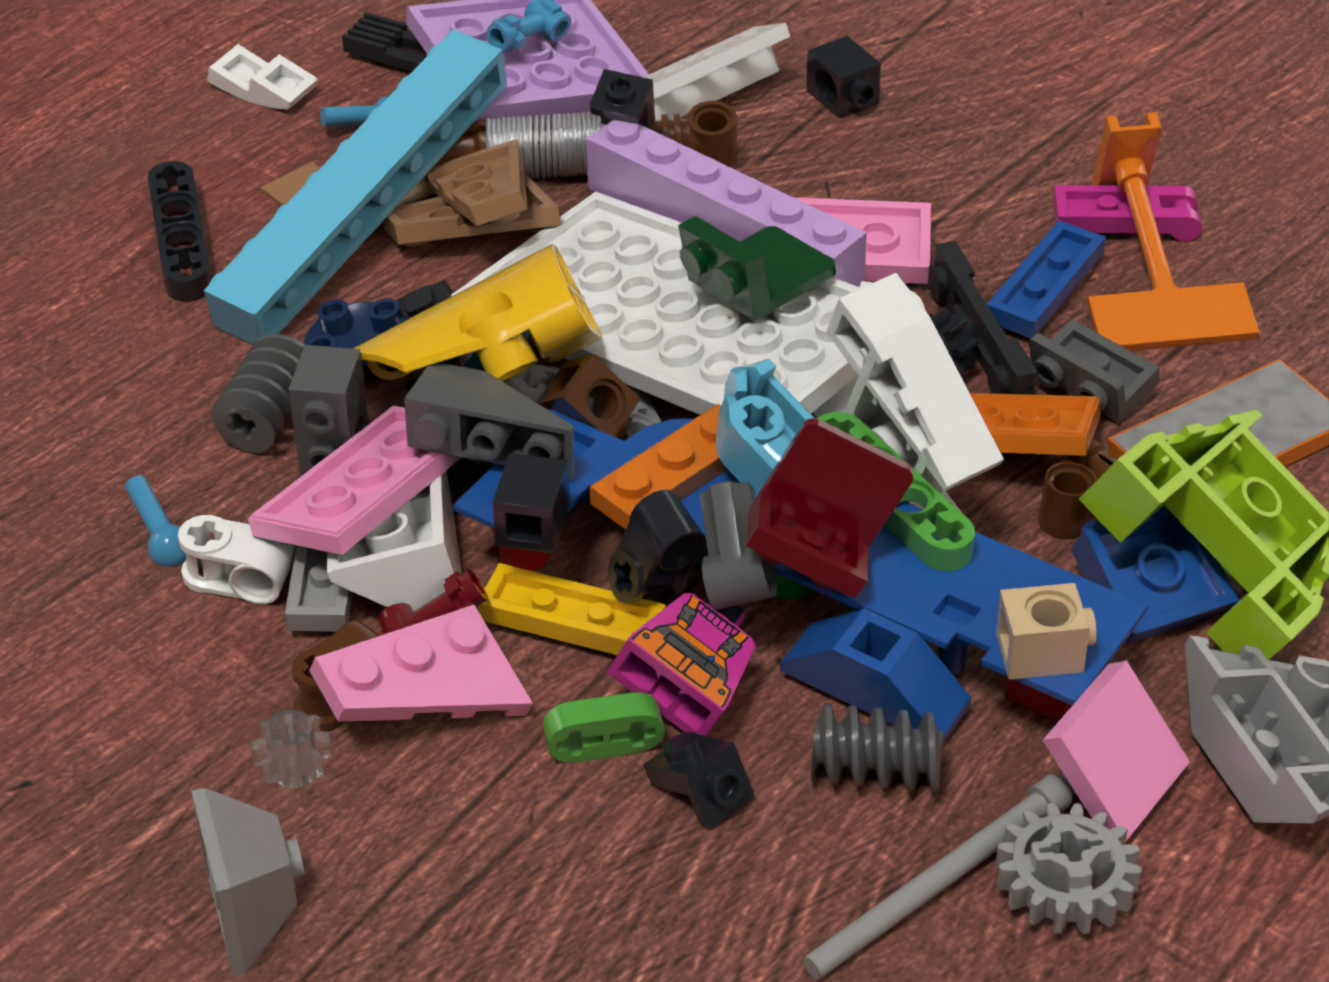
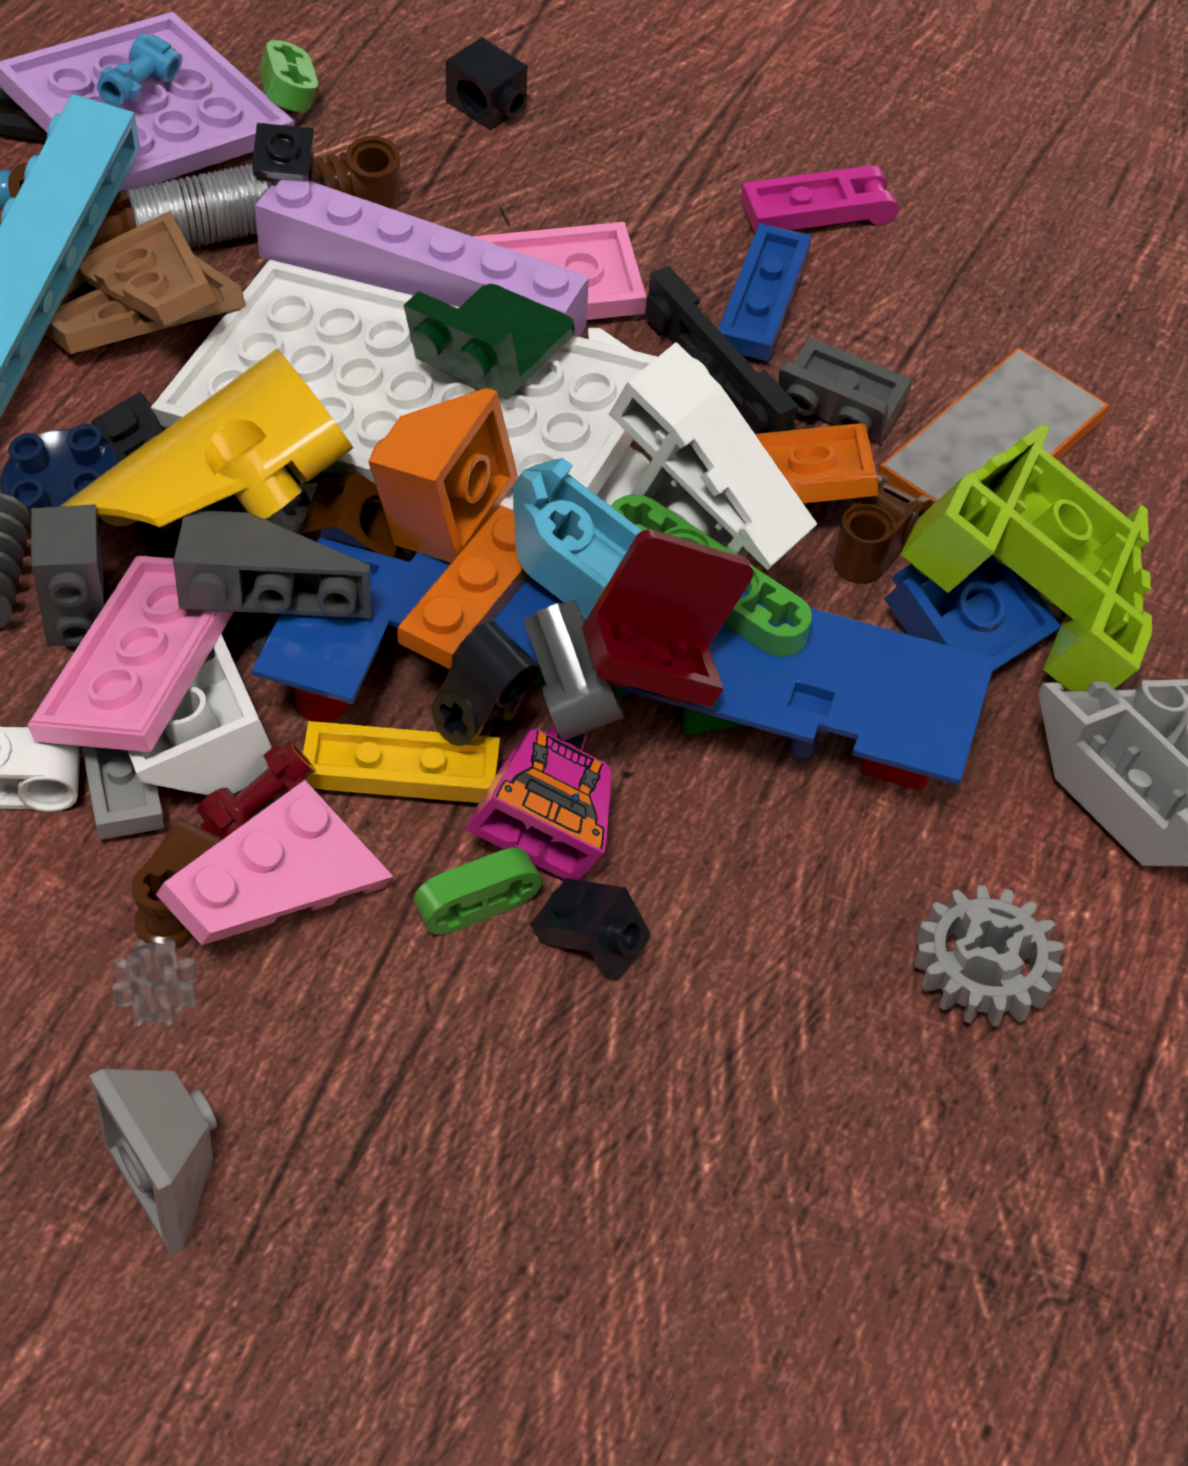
camera: 20 degrees left, 10 degrees up
(531, 503) = (344, 658): black brick -> none
(664, 45) = (288, 76): none -> bright green beam
(666, 362) = (444, 473): none -> orange slope
(717, 70) = (351, 92): white fence -> none
(877, 665) = (738, 773): blue slope -> none
(877, 747) = (764, 859): dark grey piece -> none
(935, 878) = (937, 882): light grey bar -> none
(1044, 631) = (913, 712): tan brick -> none
(1116, 749) = (1003, 818): bright pink tile -> none
(1167, 313) = (894, 311): orange piece -> none

